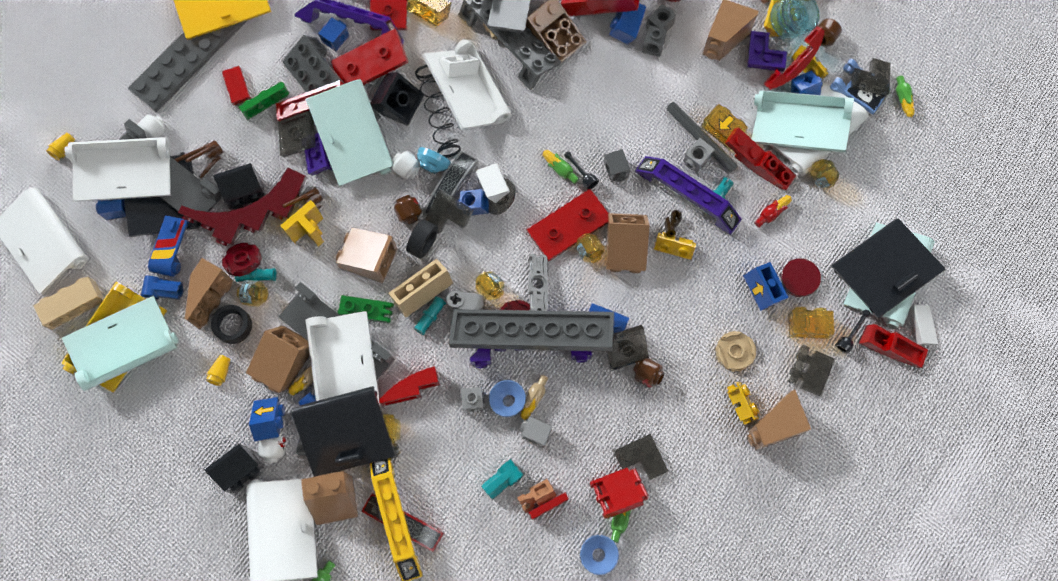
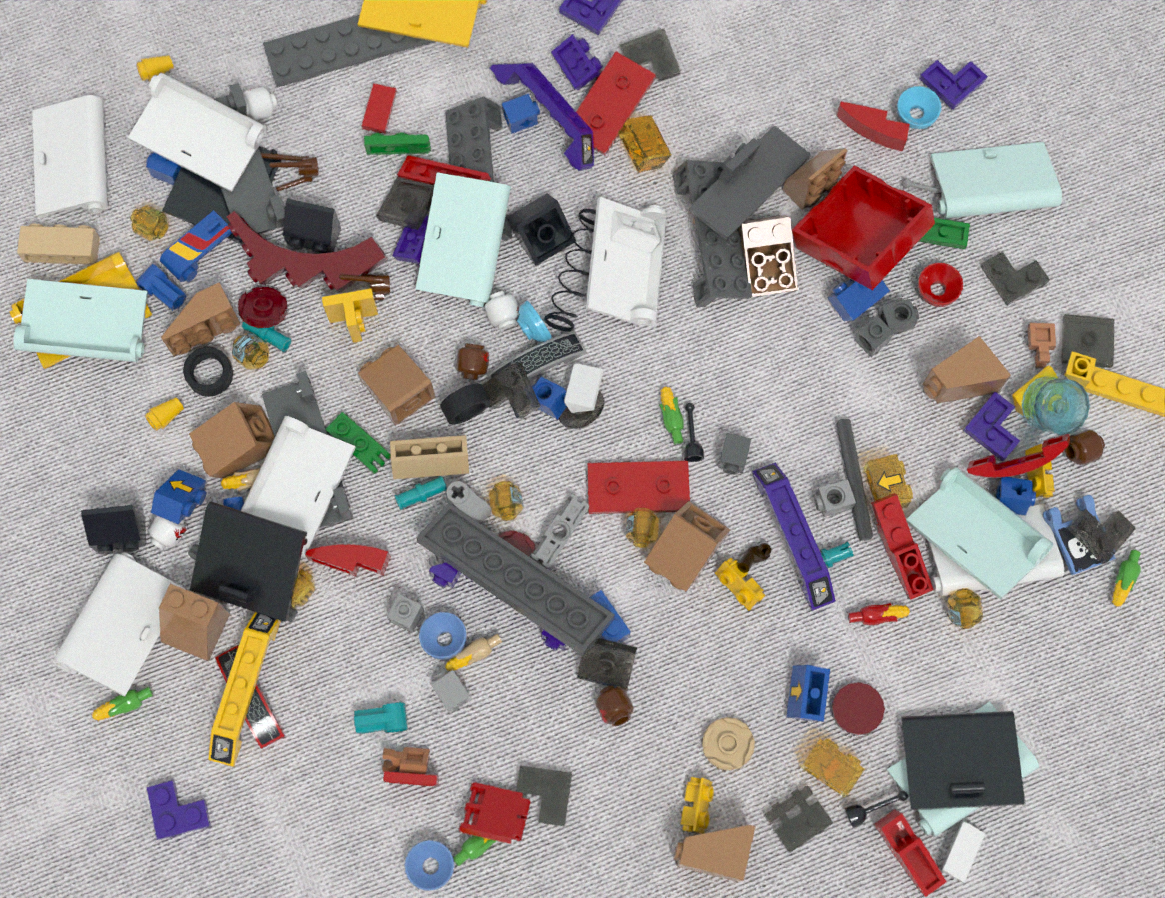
camera: 30 degrees right, 0 degrees up
(125, 250) = (149, 223): none -> clear yellow head
(371, 59) = (540, 168): red plate -> none

